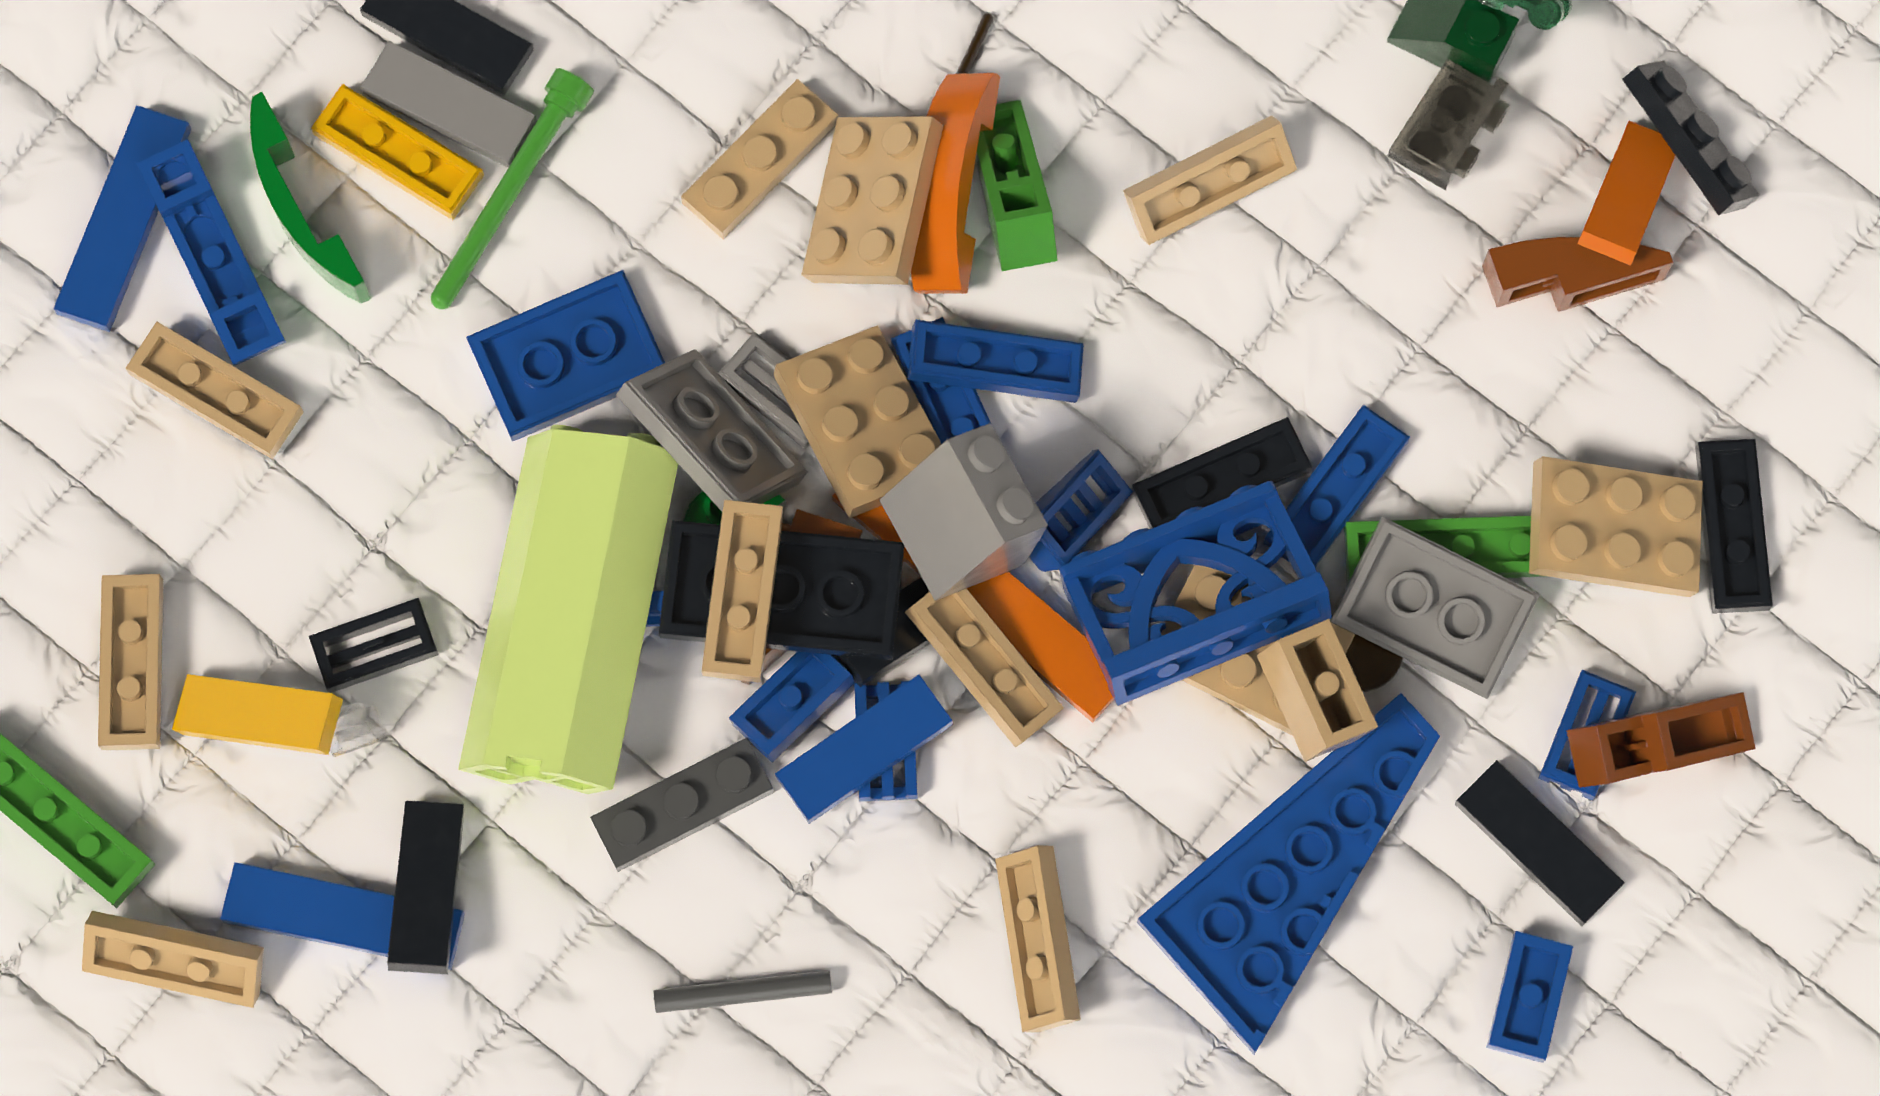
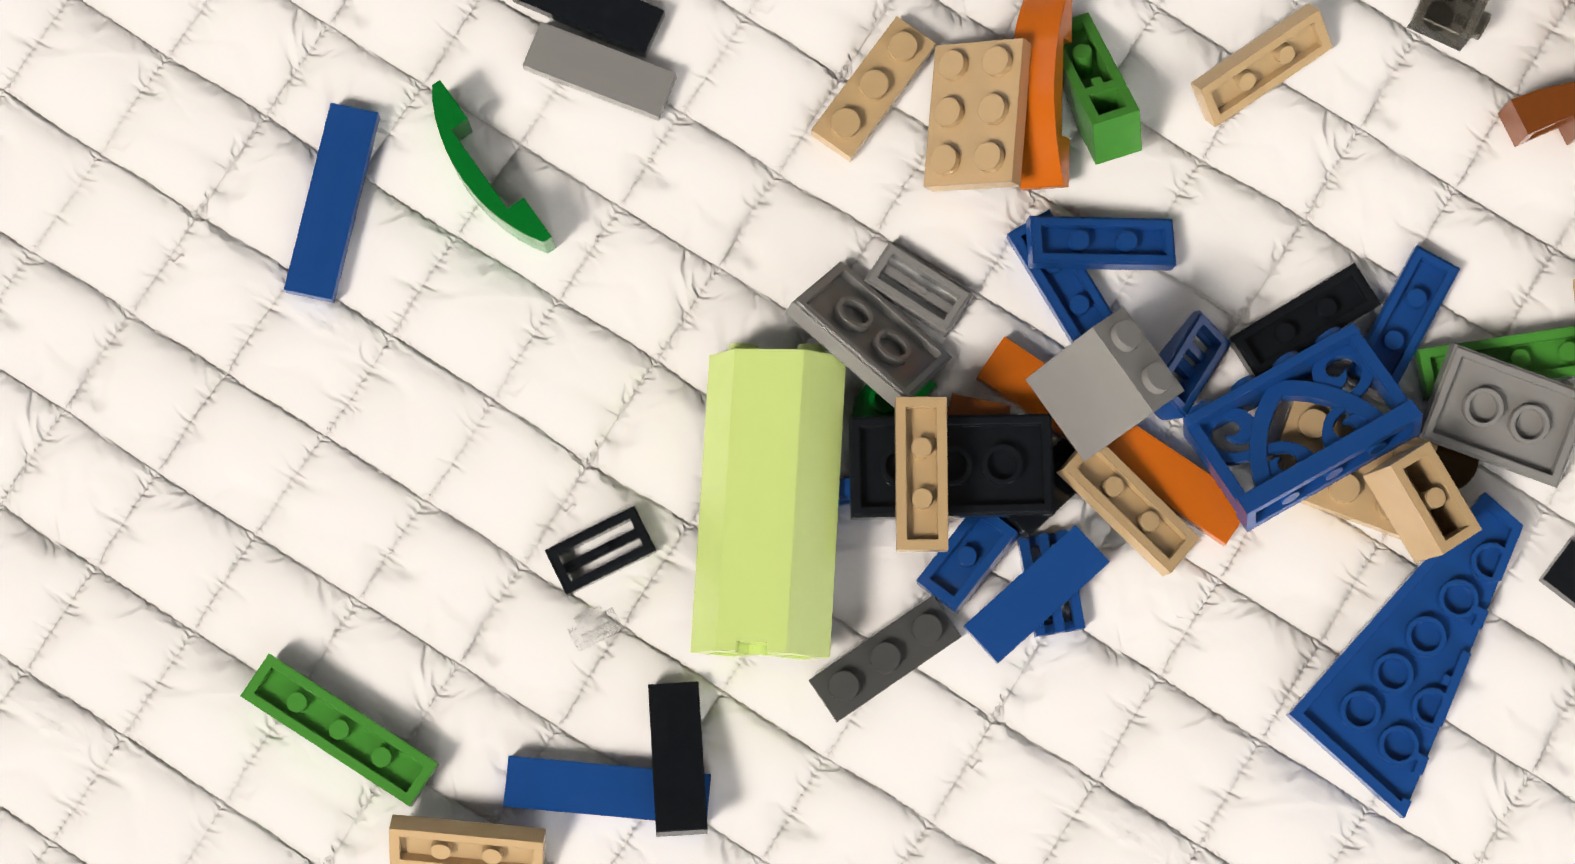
camera: 10 degrees left, 5 degrees up
(130, 662) = (394, 591): tan plate -> none
(211, 252) = (414, 225): blue slope -> none
(214, 390) = (433, 344): tan plate -> none
(257, 714) = (512, 626): yellow tile -> none
(397, 151) = (561, 117): yellow tile -> none
(564, 97) = (699, 53): bright green piece -> none
(565, 355) = (731, 279): blue tile -> none
(742, 991) = (958, 815): dark grey bar -> none
(858, 416) = (994, 308): tan plate -> none
(1038, 939) = (1206, 741): tan plate -> none

